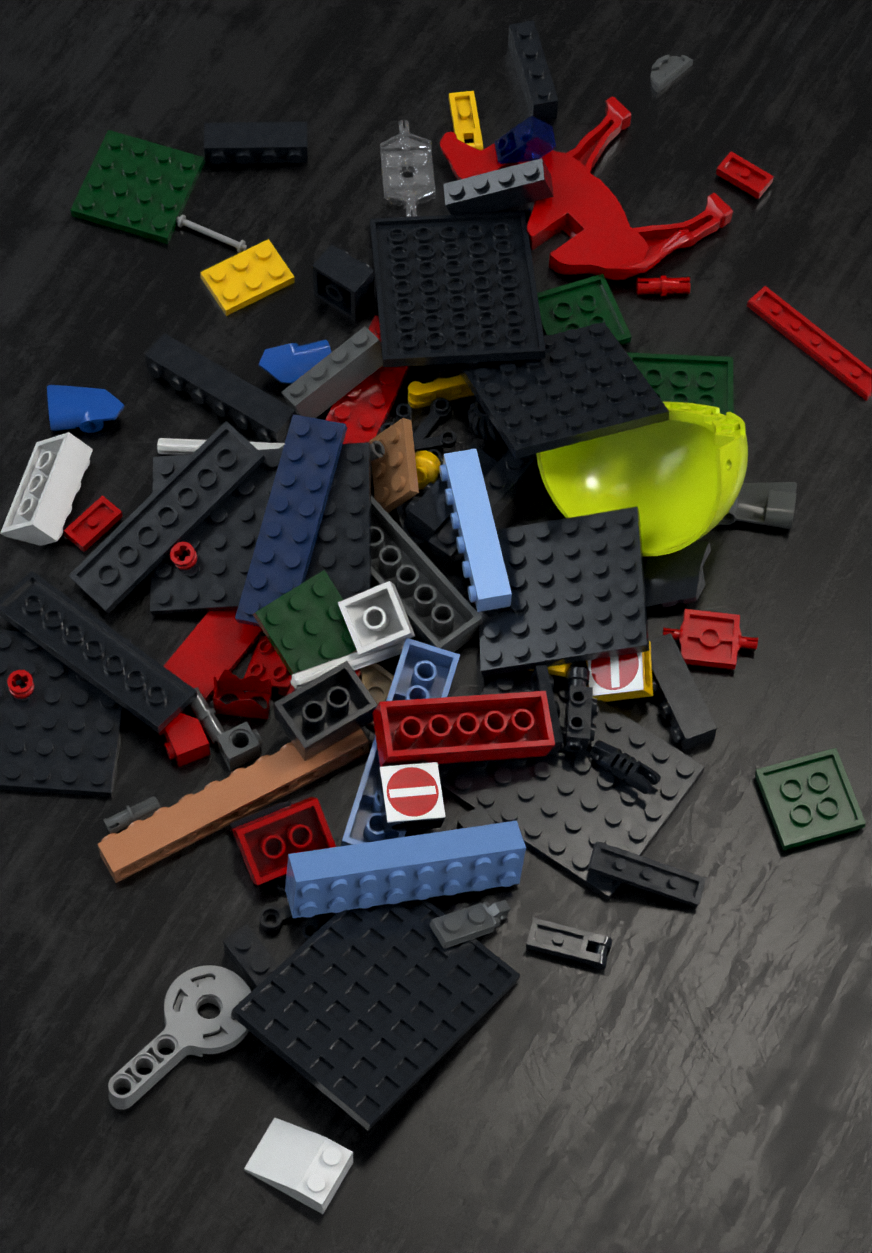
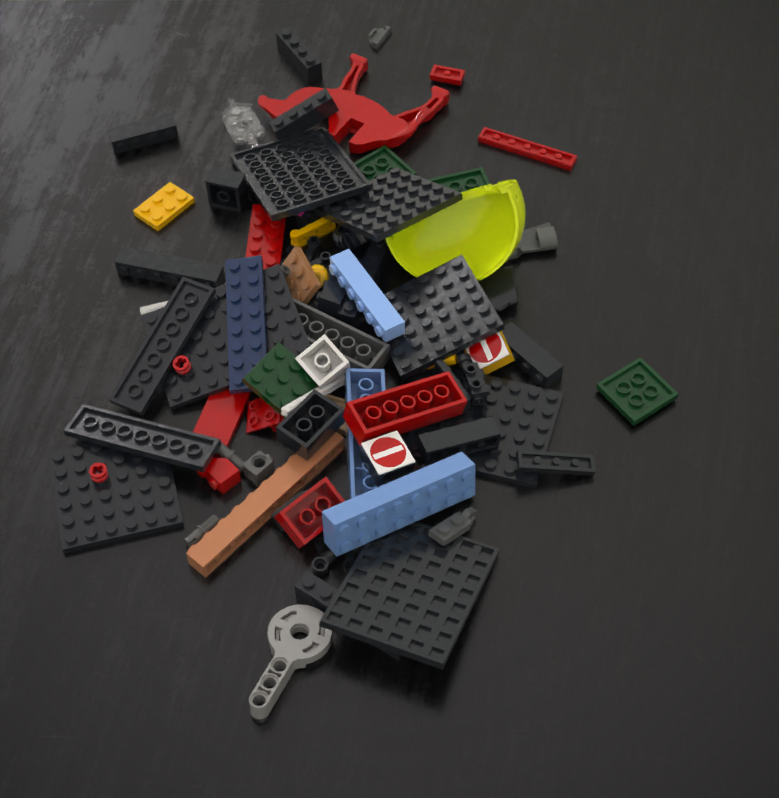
camera: 15 degrees left, 10 degrees down
(47, 490) = (76, 356): white slope -> none
(81, 408) = (83, 303): blue panel -> none
(93, 523) = (113, 367): red plate -> none
(137, 186) = (75, 176): dark green plate -> none
(239, 245) = (150, 190): light grey axle -> none
(245, 705) = (252, 436): red piece -> none
(292, 361) = (218, 241): blue panel -> none
(300, 1164) = (400, 713): white slope -> none
(335, 375) = (243, 236): dark grey brick -> none
(465, 118) = (267, 87): yellow plate -> none
(522, 798) = (464, 438): none -> black brick
(525, 142) = (309, 85): clear blue slope -> none
(568, 942) = (522, 520): plate -> none
(624, 767) = (515, 404): black hinge -> none
(663, 285) = (423, 143): red pin -> none
(710, 638) = (537, 319): red plate -> none

